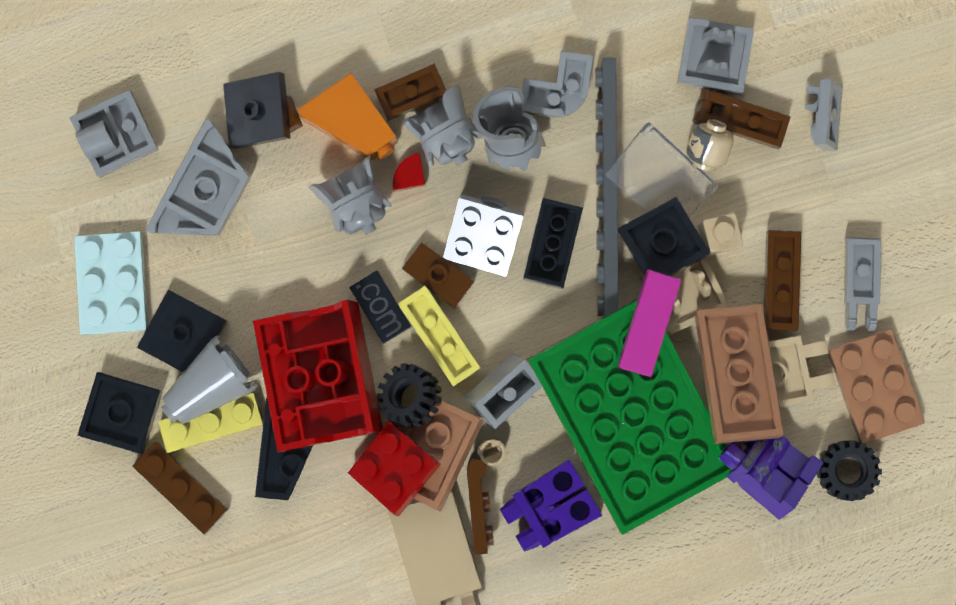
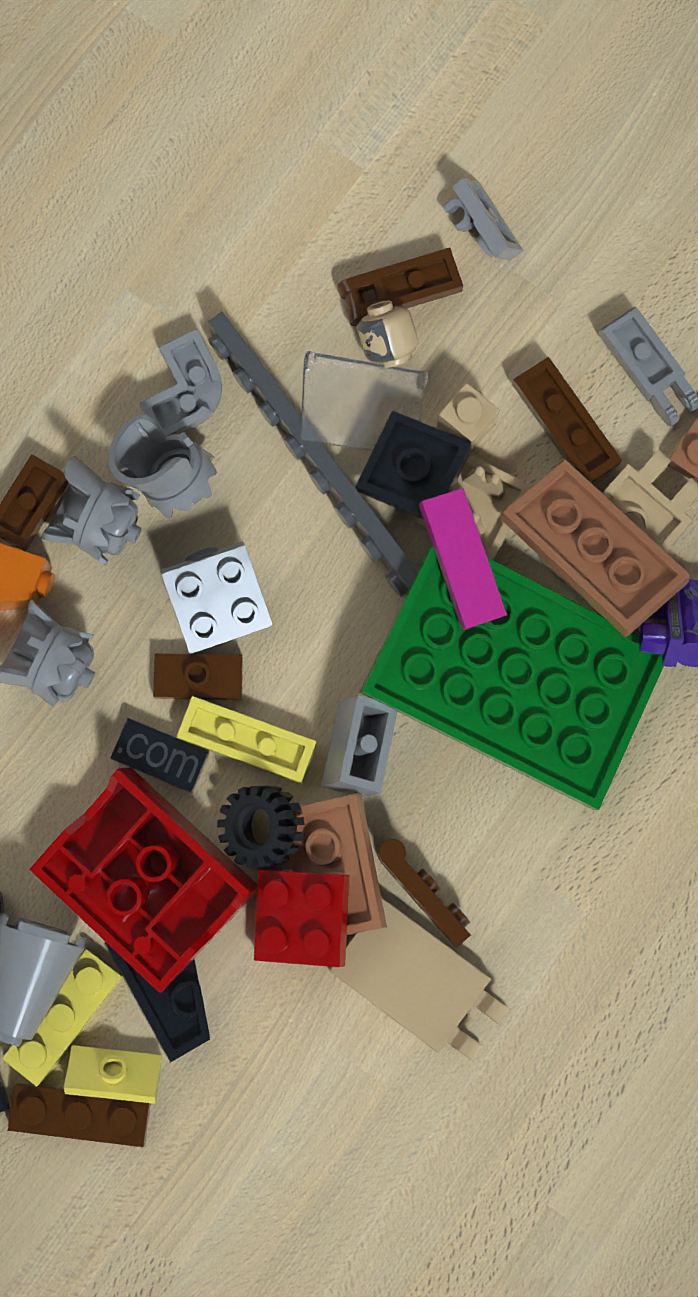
camera: 40 degrees left, 5 degrees down
(216, 478) = (113, 1074): none -> light yellow plate
(409, 174) = (89, 591): red tile -> none
(495, 458) = (401, 829): tan hinge -> none
(540, 507) = (502, 849): dark purple hips -> none
(553, 243) = (297, 554): black piece -> none
(715, 56) = (325, 241): light grey plate -> none

